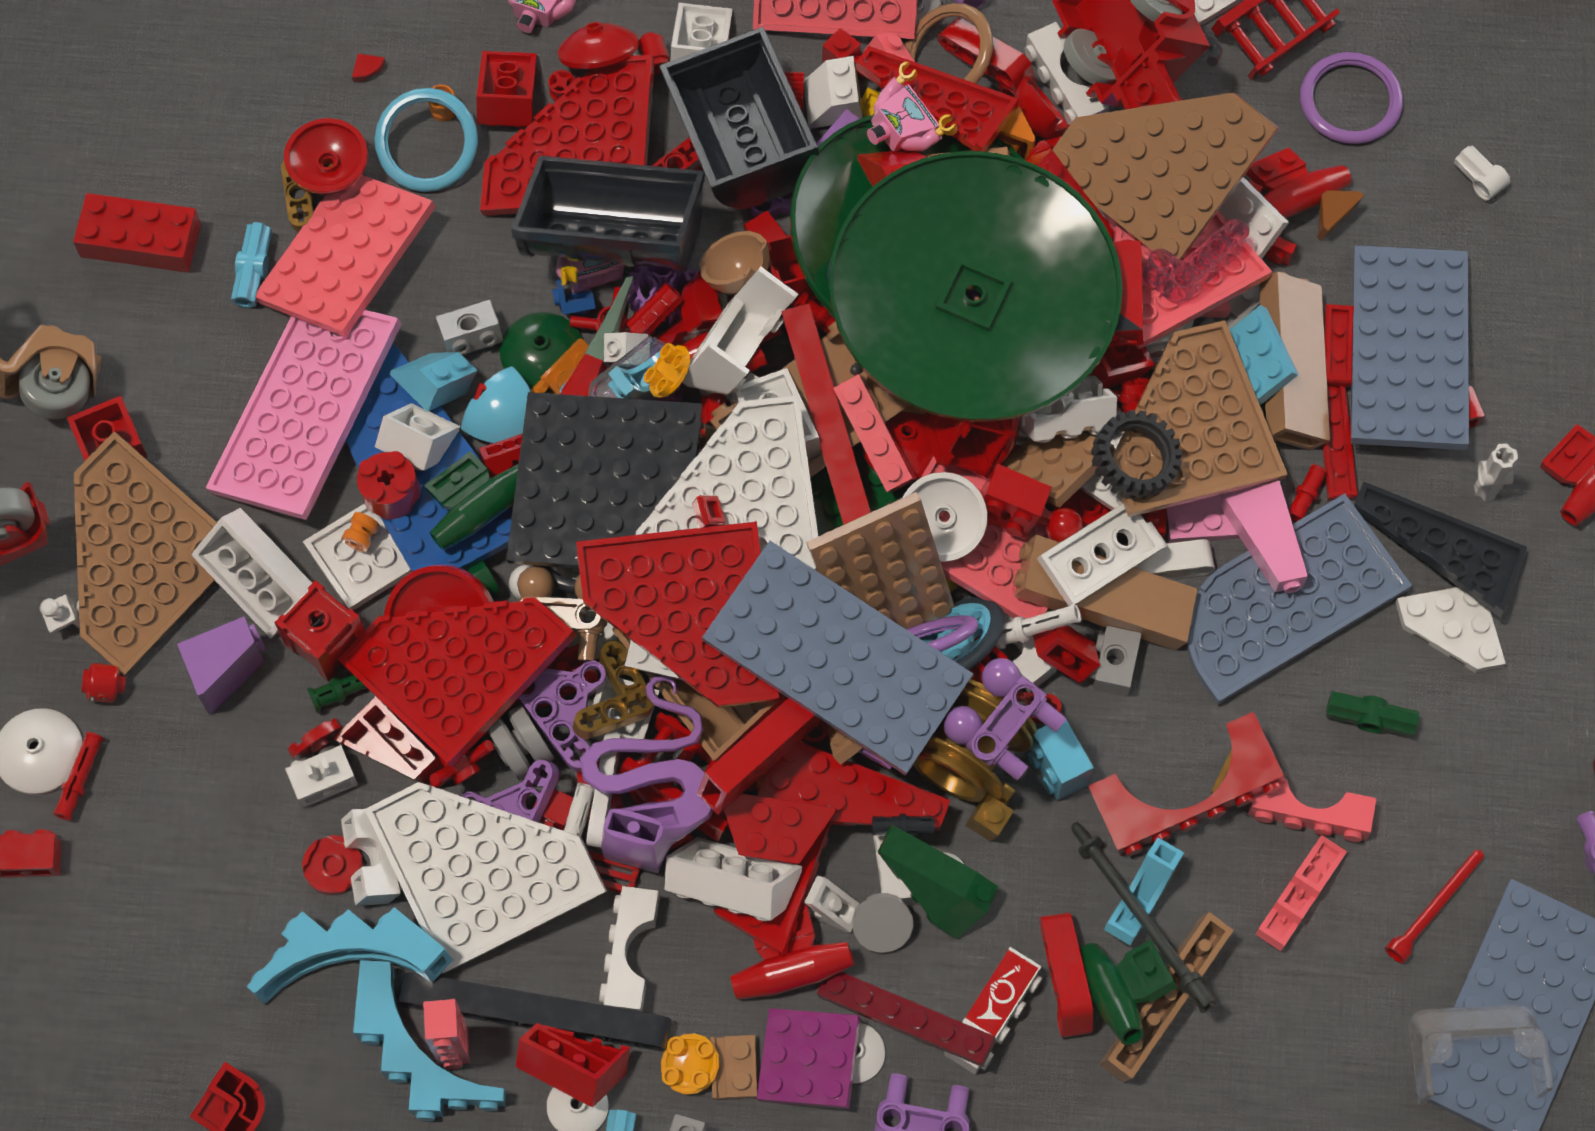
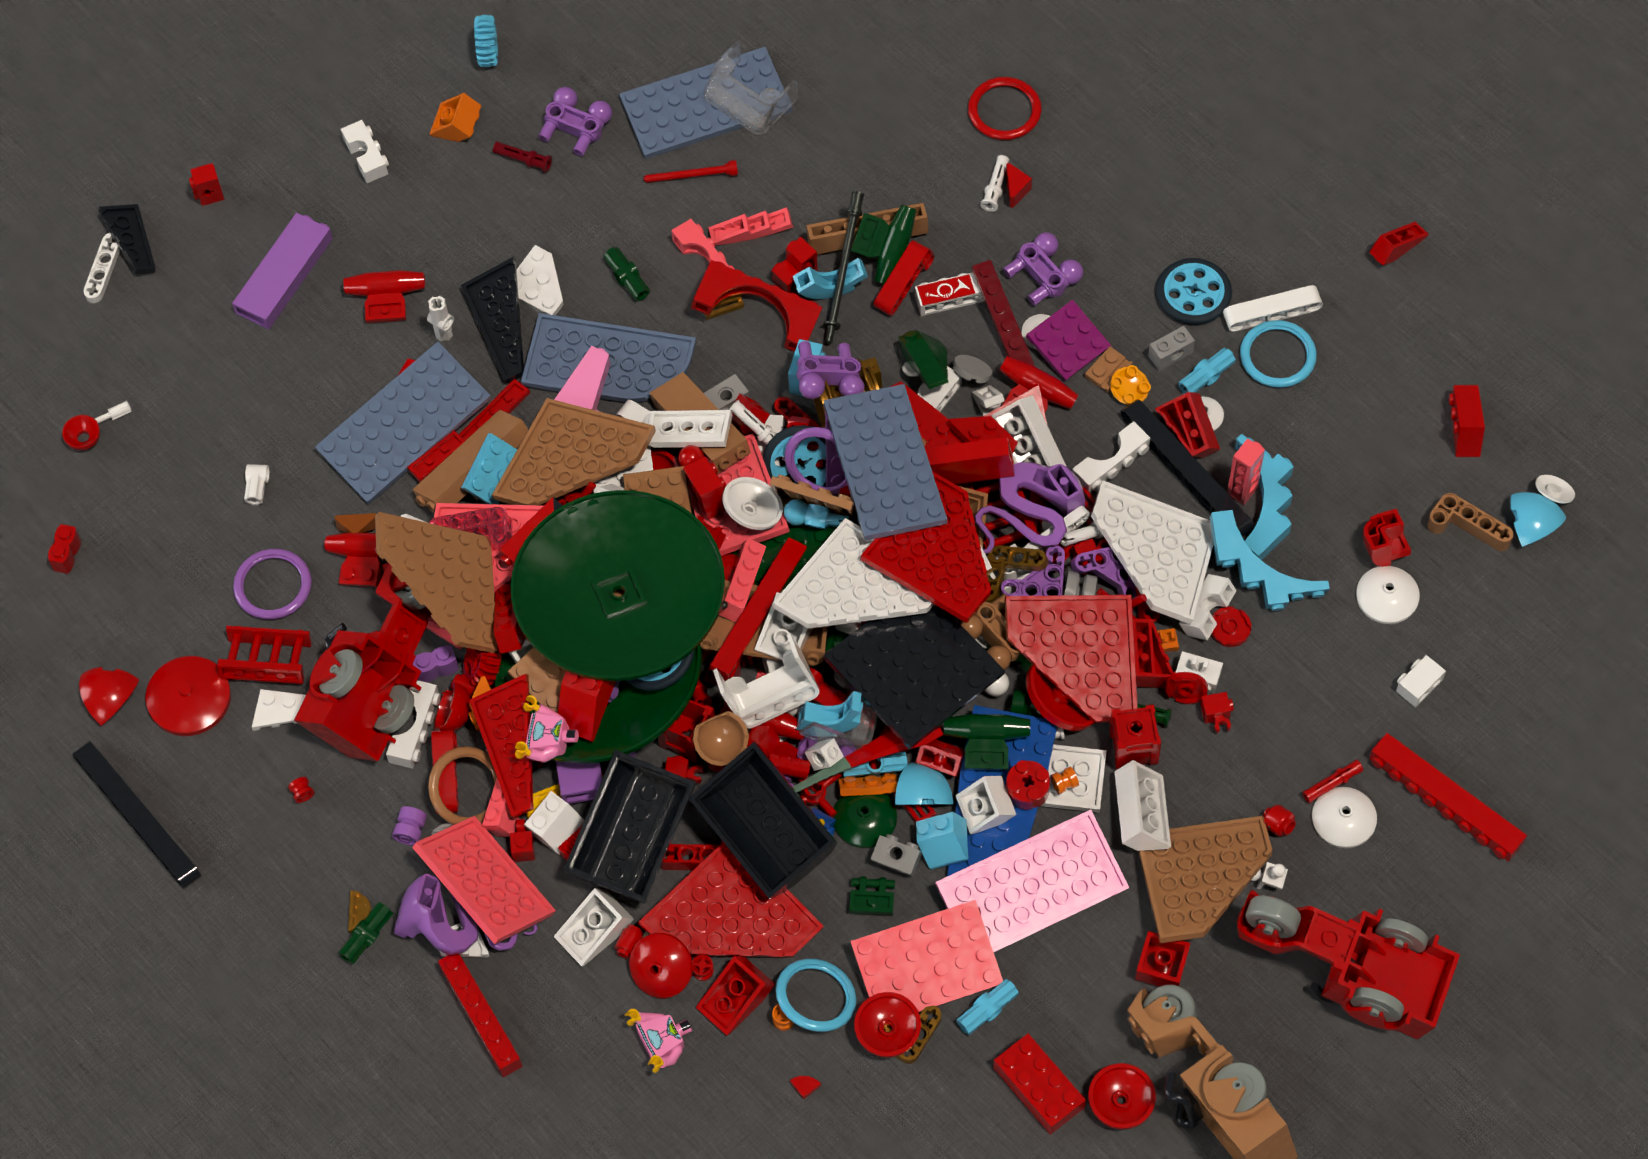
camera: 135 degrees left, 5 degrees down
(39, 265) = (1123, 1082): none -> red dish
(65, 970) = (1420, 680): none -> white brick
(188, 1074) = (1384, 604): none -> white dish
(222, 660) = (1202, 771): medium lavender slope -> none
(265, 751) = (1217, 709): none -> red brick
(387, 786) = (1169, 640): none -> orange tile
(455, 272) = (872, 902): none -> dark green plate
(668, 370) = (821, 696): light orange dish -> none
(708, 511) = (881, 583): red slope -> none
(910, 824) = (921, 391): black pin -> none
(1120, 480) = (618, 428): black tyre -> none
(1199, 878) = (798, 257): none -> red brick
(1307, 492) = (536, 400): red pin -> none

